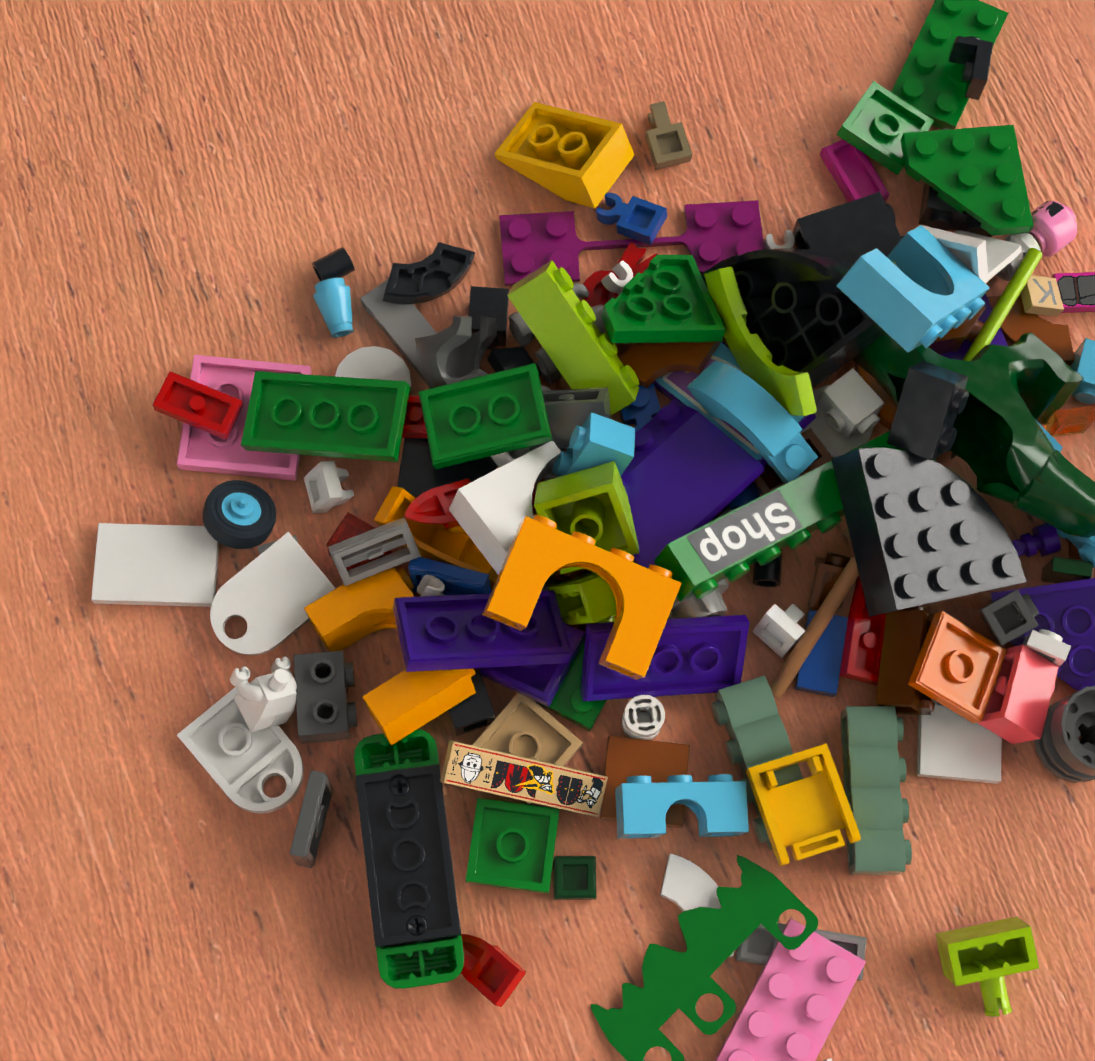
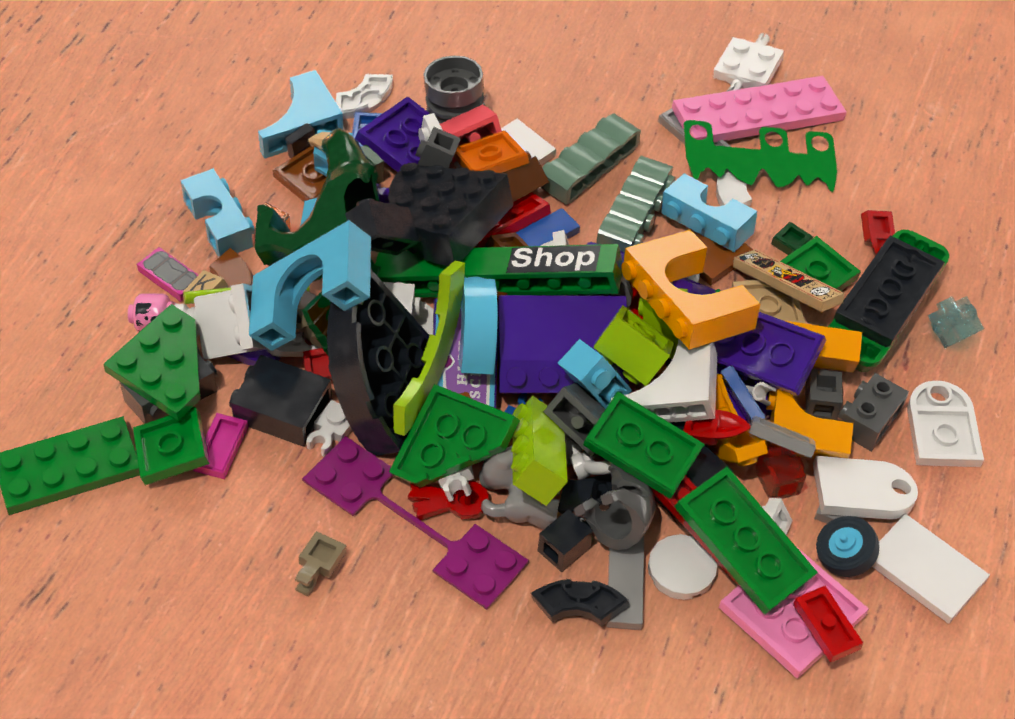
camera: 135 degrees left, 20 degrees down
(268, 698) = (912, 425): white piece -> none
(311, 819) = (933, 347): dark grey tile -> none
(316, 891) = (955, 320): none -> clear light blue brick
(333, 265) = (642, 662): black hinge -> none
(335, 306) = (664, 634): medium azure cone -> none
(377, 664) = (824, 394): none -> dark grey brick
(567, 152) = (400, 607): yellow slope -> none
(635, 220) = (398, 525): blue plate -> none
(806, 811) = (641, 165): yellow container -> none
(815, 629) = (541, 233): medium nougat bar -> none
(976, 57) = (71, 420): black bracket -> none
(987, 955) = (608, 63): lime brick -> none

